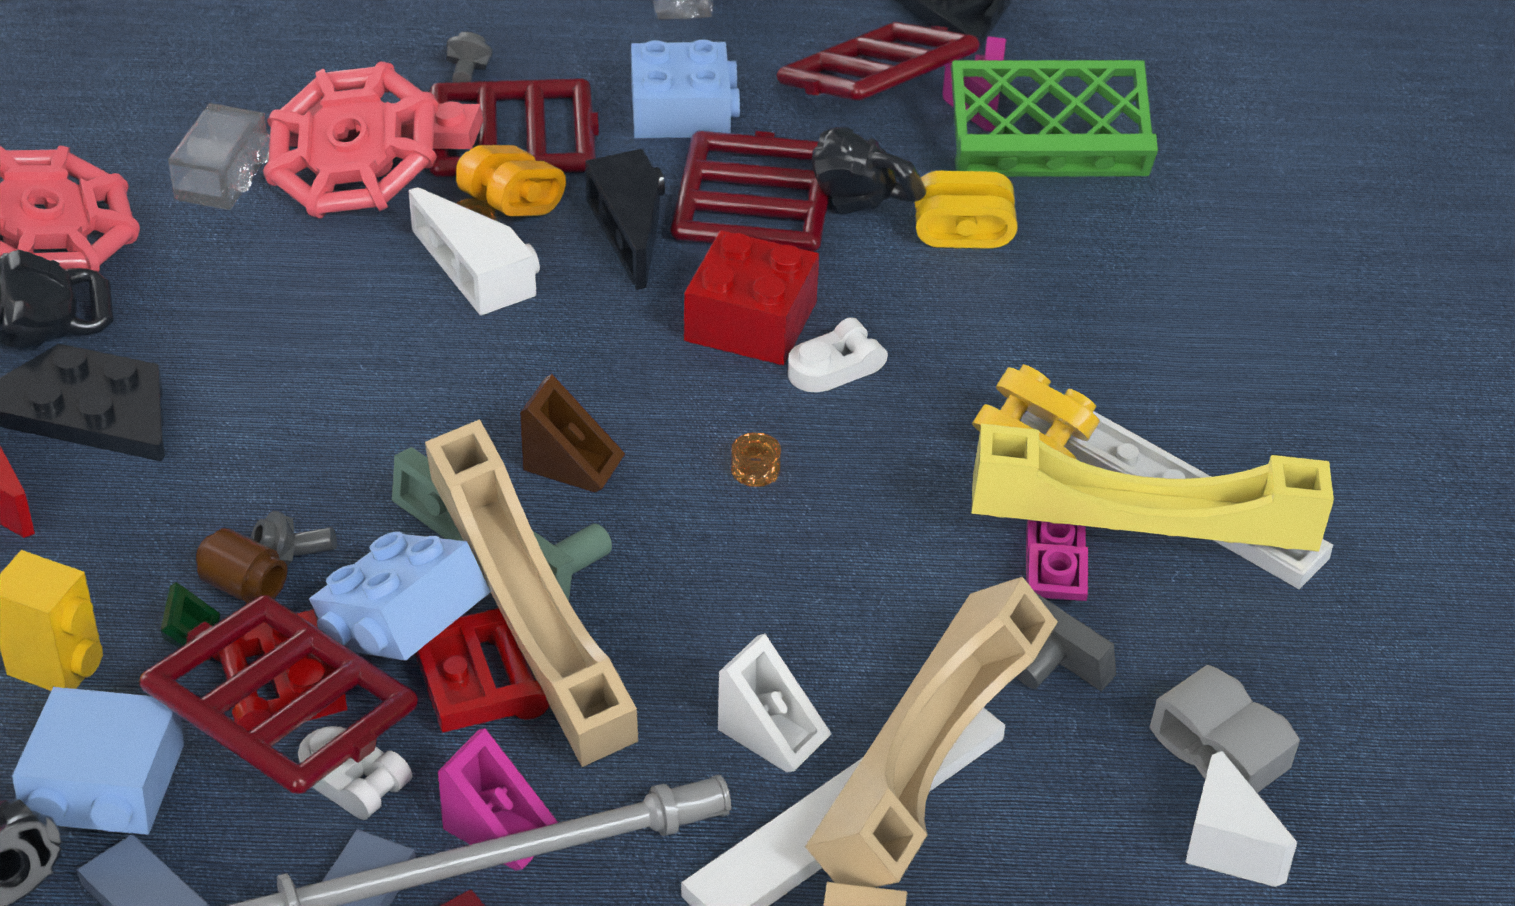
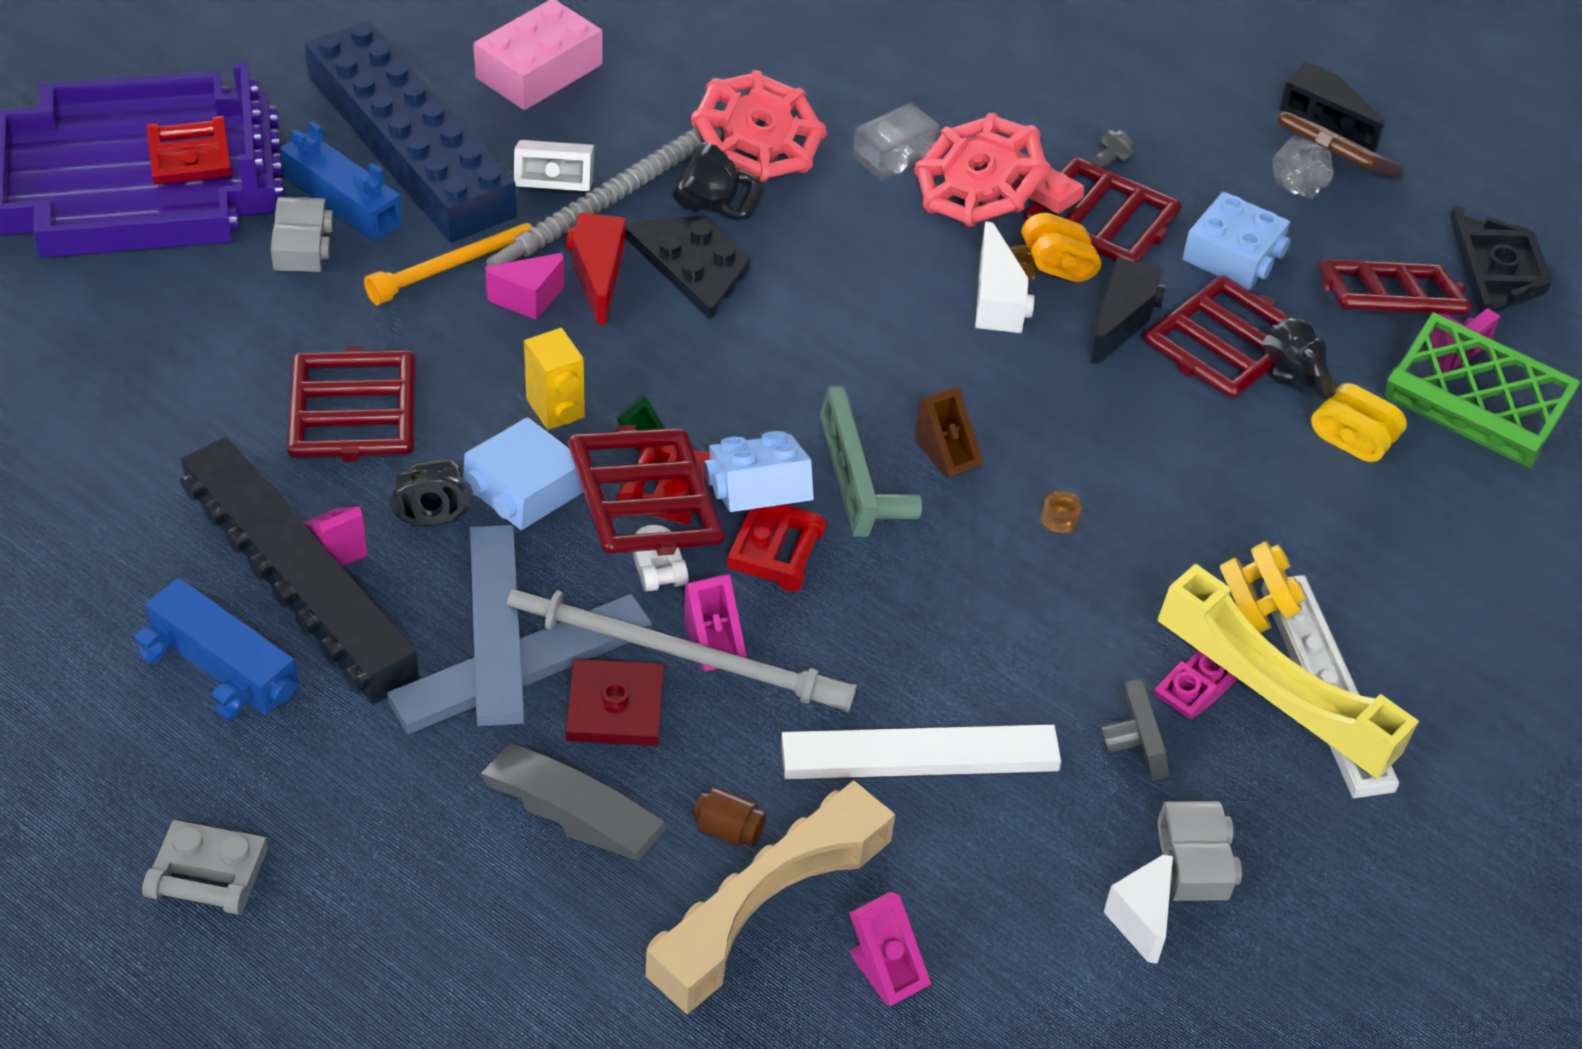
camera: 35 degrees right, 5 degrees up
(240, 565) = (693, 406): reddish brown brick -> none
(279, 534) = (728, 403): dark grey plate -> none
(559, 650) = (822, 560): tan arch -> none
(751, 297) = (1150, 405): red brick -> none
(767, 707) = (921, 663): white slope -> none
(821, 364) = (1161, 472): white plate -> none
(881, 809) = (943, 750): tan arch -> none

